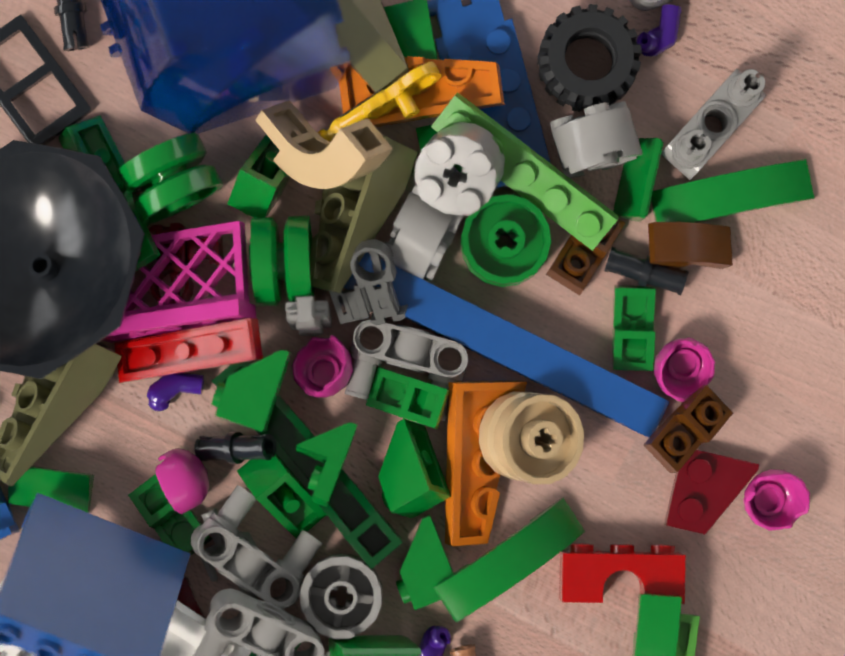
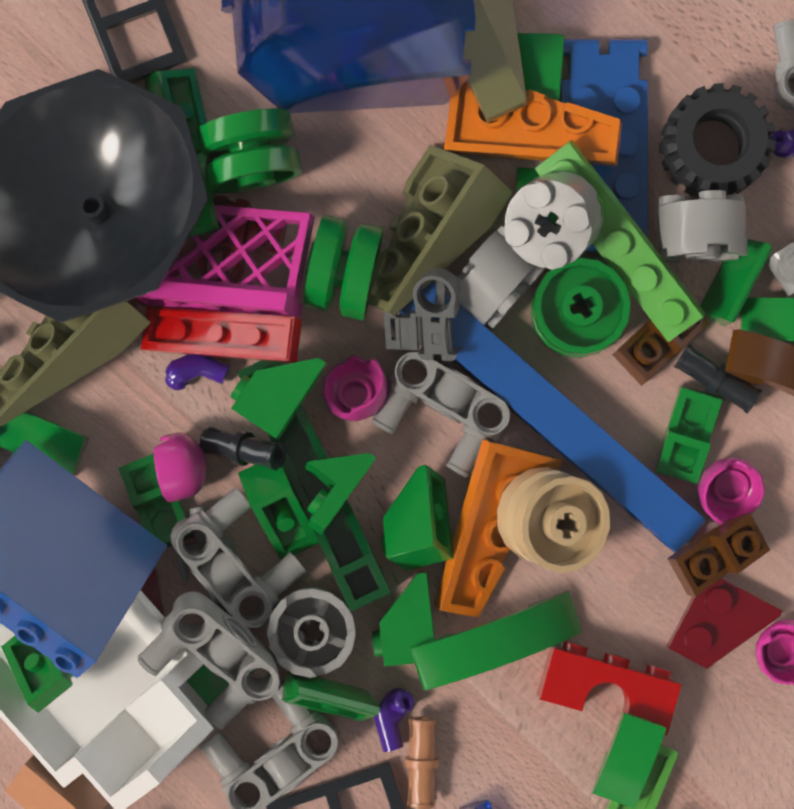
camera: 20 degrees right, 0 degrees up
(259, 182) = (349, 173): green slope -> none
(308, 316) = (355, 331): light grey hinge -> none
(318, 162) = (407, 175): tan arch -> none
(385, 100) = (493, 129): yellow piece -> none
(407, 398) = (435, 444): green slope -> none

